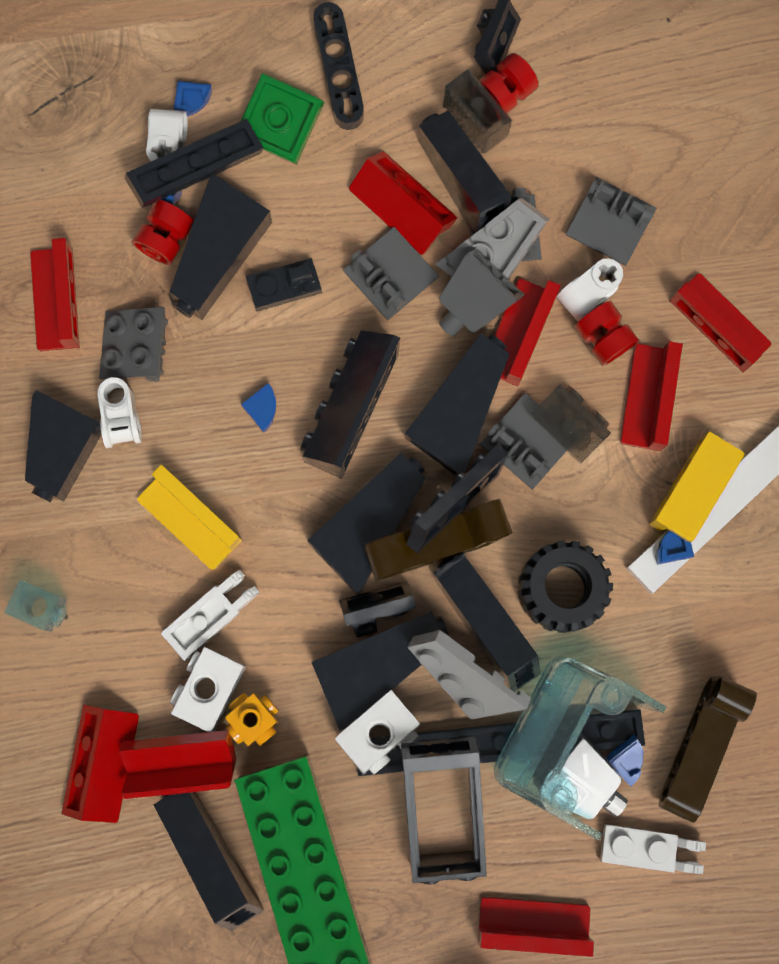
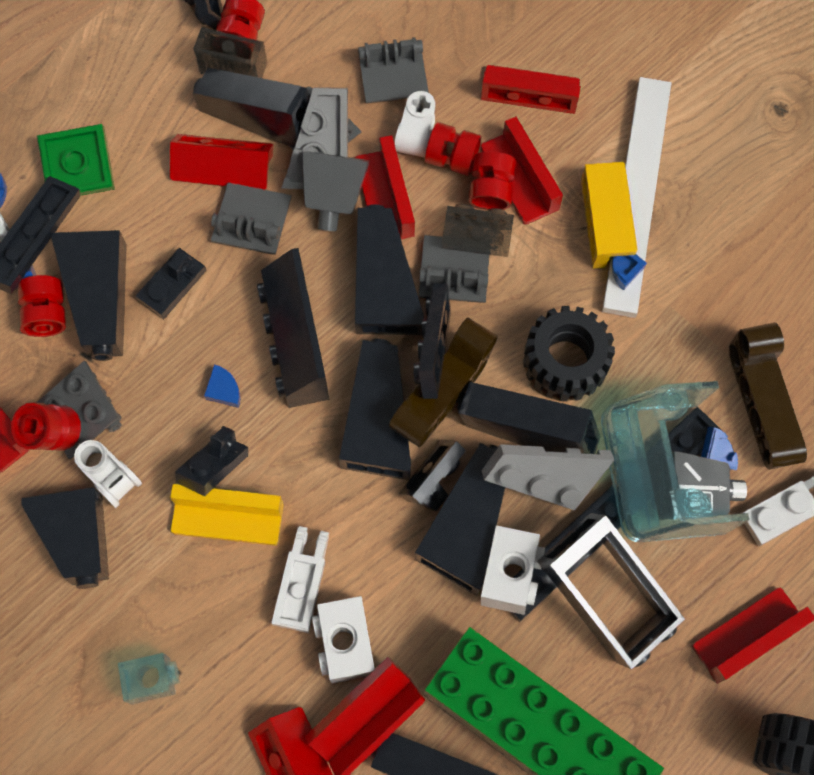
camera: 30 degrees left, 10 degrees down
(94, 343) = (45, 427): none -> red wheel
(205, 468) = (212, 462): none -> black hinge
(265, 712) = (400, 650): light orange brick -> none
(339, 65) = (93, 97): black beam -> none
(618, 387) = (492, 175): none -> red wheel

